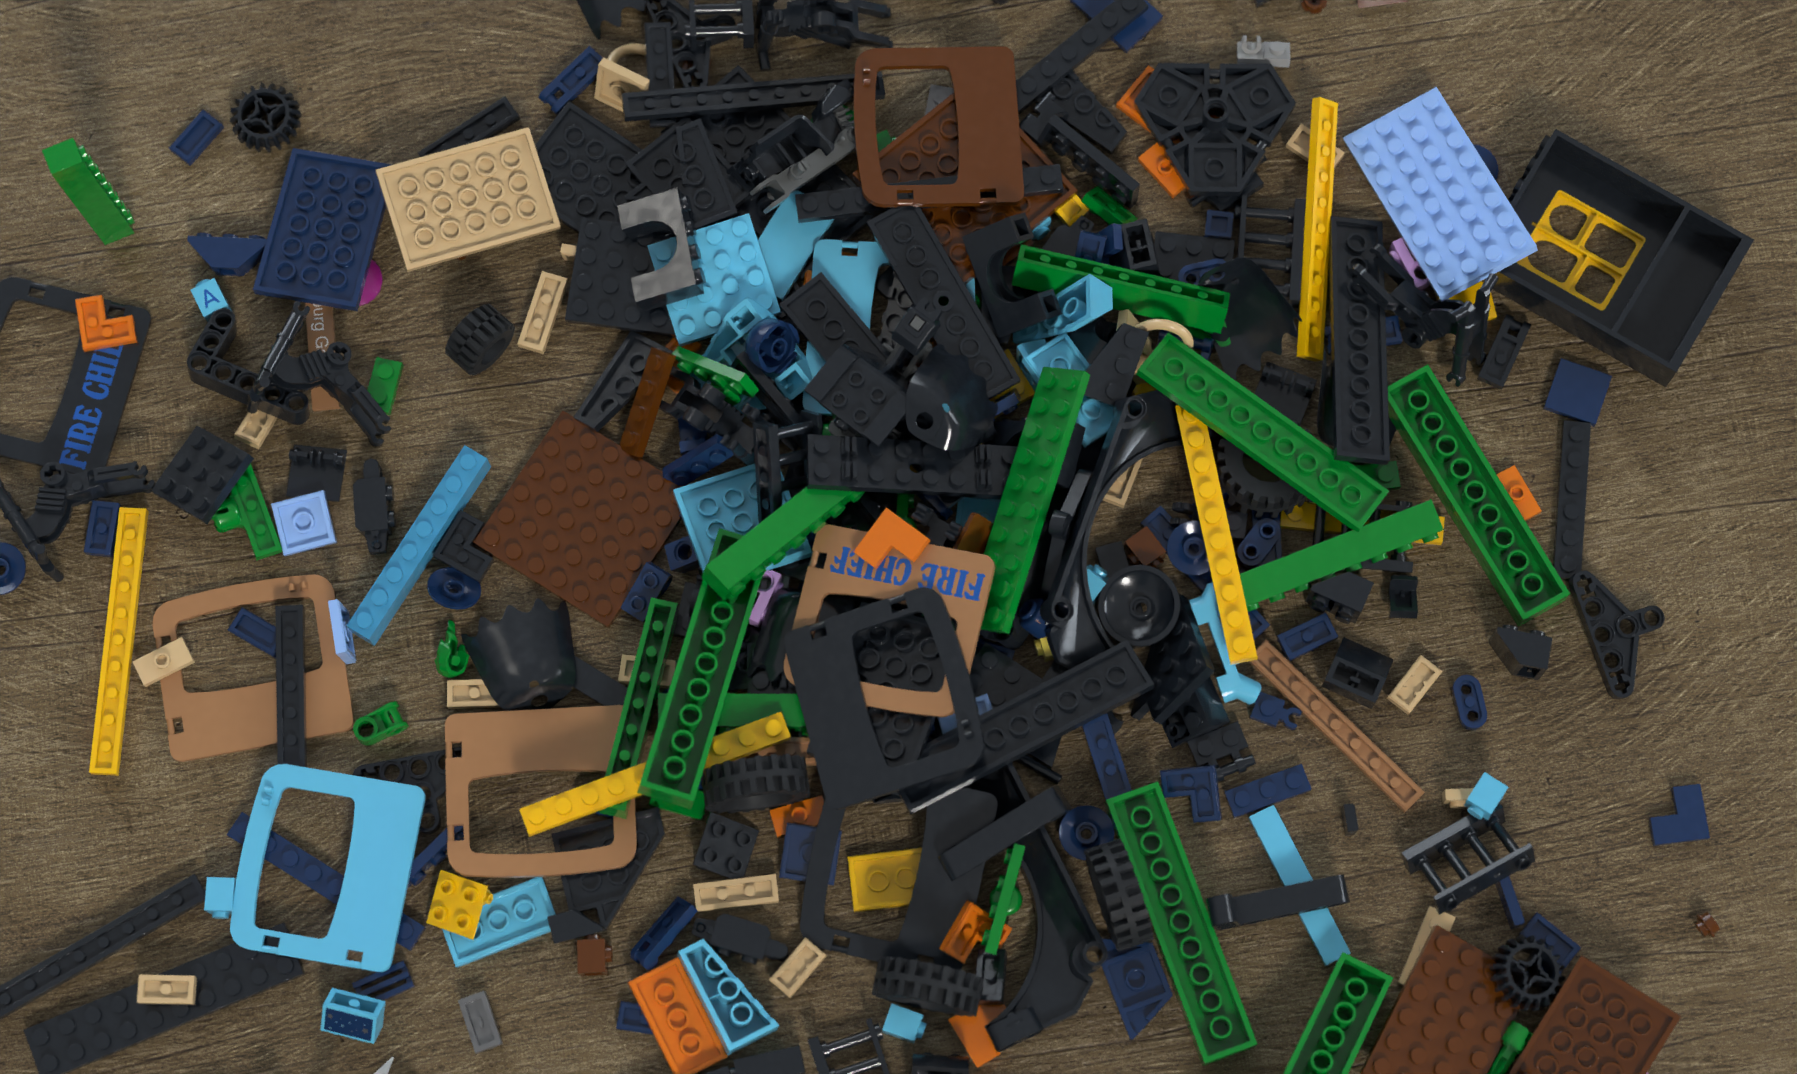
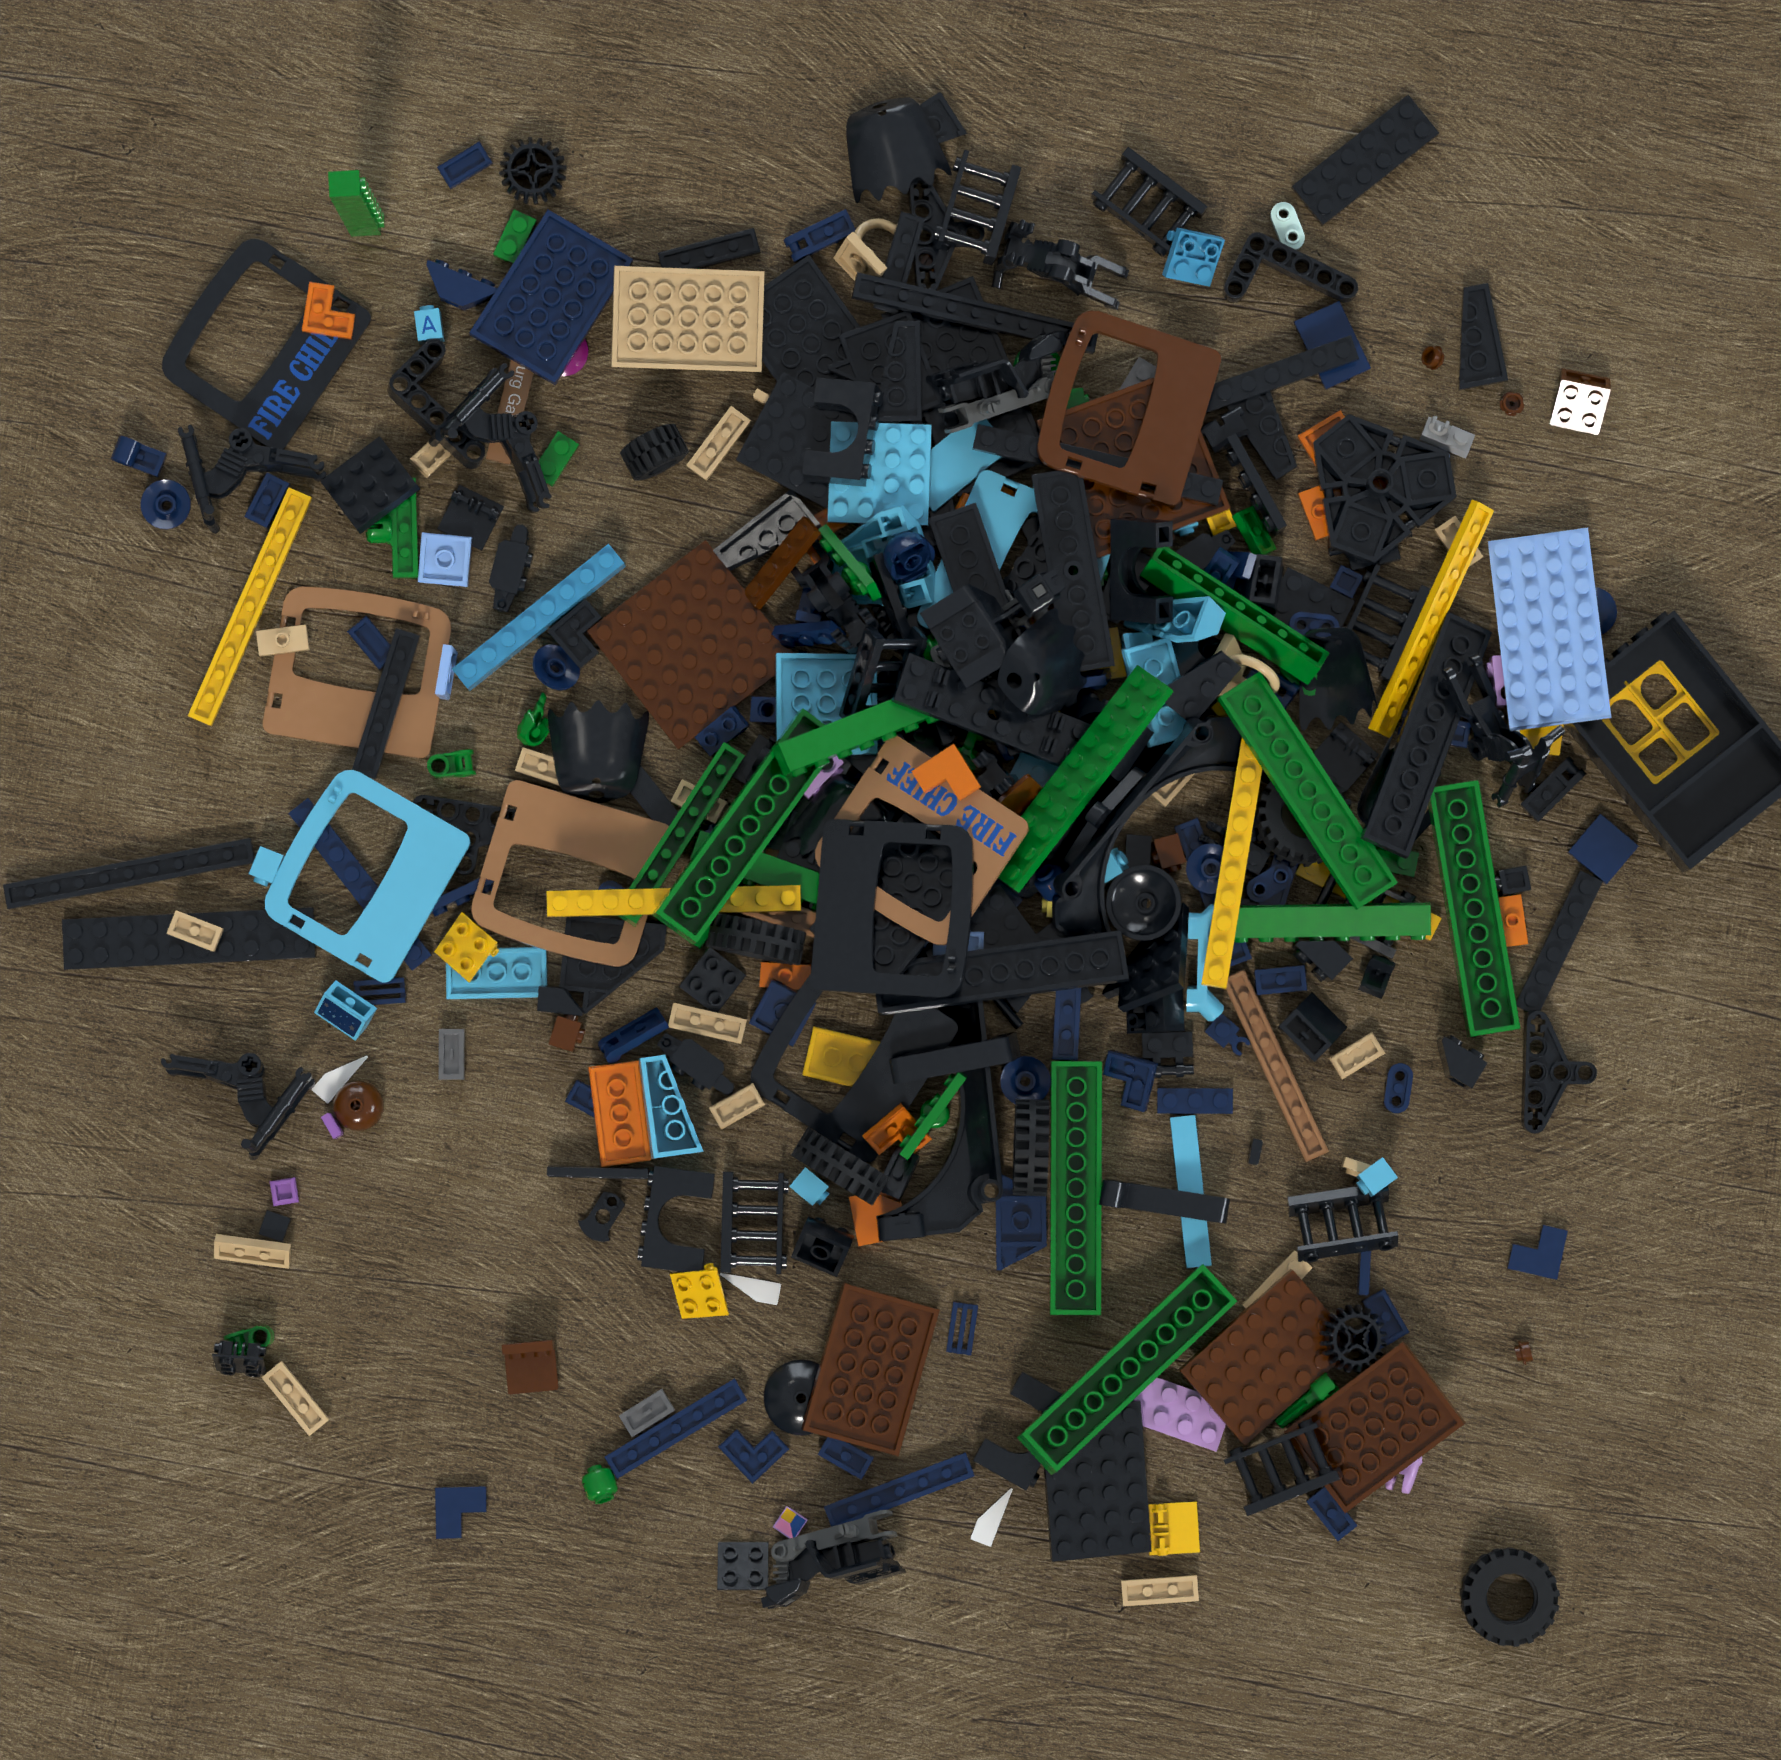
camera: 15 degrees right, 10 degrees up
(268, 186) = (514, 236): none -> green plate
(1502, 453) = (1512, 880): none -> black bracket

